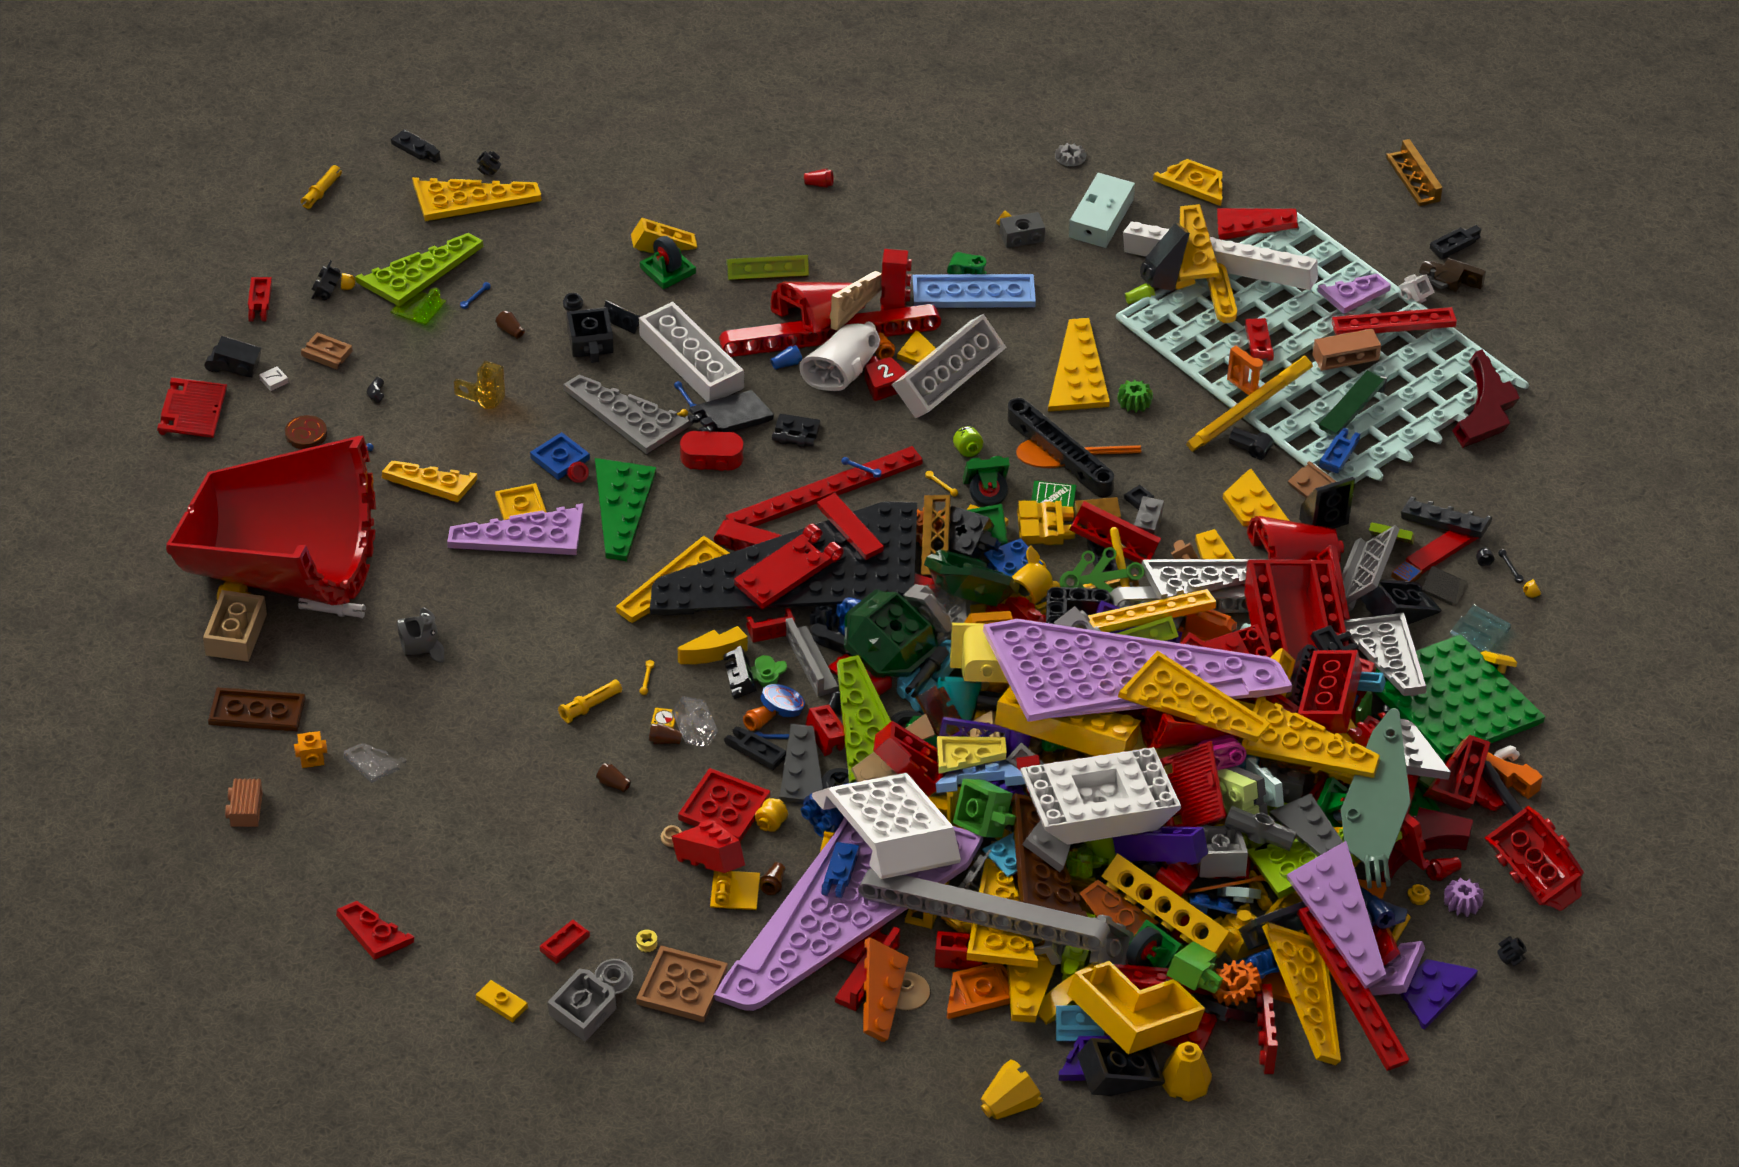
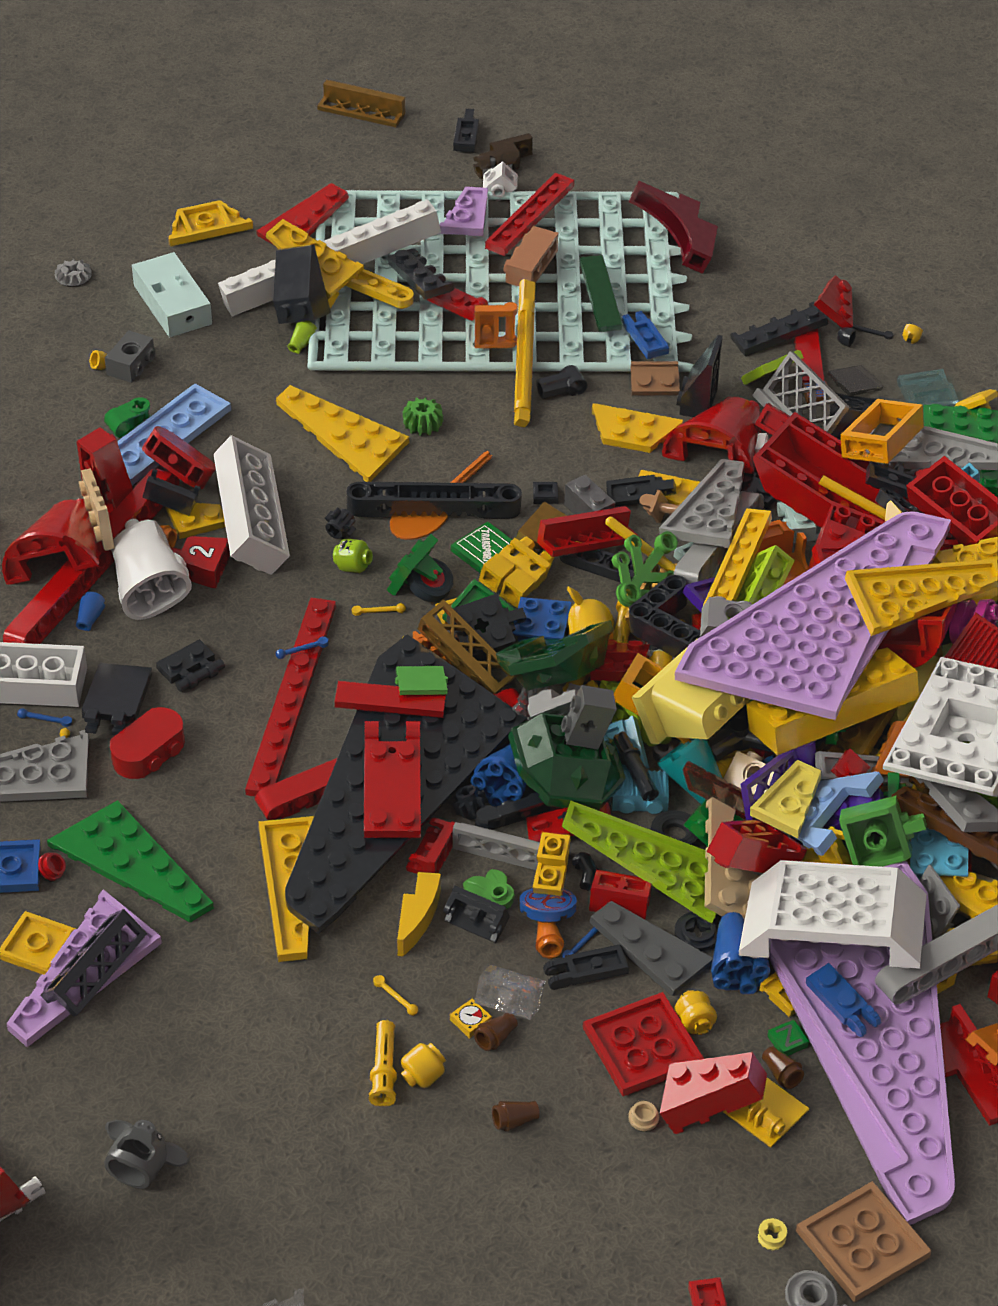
camera: 50 degrees left, 0 degrees up
(520, 525) = (87, 954): none -> black fence
(604, 717) = (422, 1065): none -> yellow head
(797, 869) = (788, 1038): none -> green tile
(811, 676) = (552, 864): none -> yellow slope
(879, 529) = (421, 680): none -> bright green piece
(909, 611) = (589, 717): none -> dark grey brick
(914, 324) = (170, 494): none -> black hinge
(949, 306) = (179, 457): none -> red brick
(989, 418) = (340, 523): none -> black gear
(1184, 531) = (629, 490): none -> black hinge
(1256, 304) = (418, 275): none -> black hinge
(1287, 645) = (853, 497): none -> yellow bar
(1368, 614) = (882, 448): none -> light orange window
(1507, 528) = (837, 302): none -> red wing

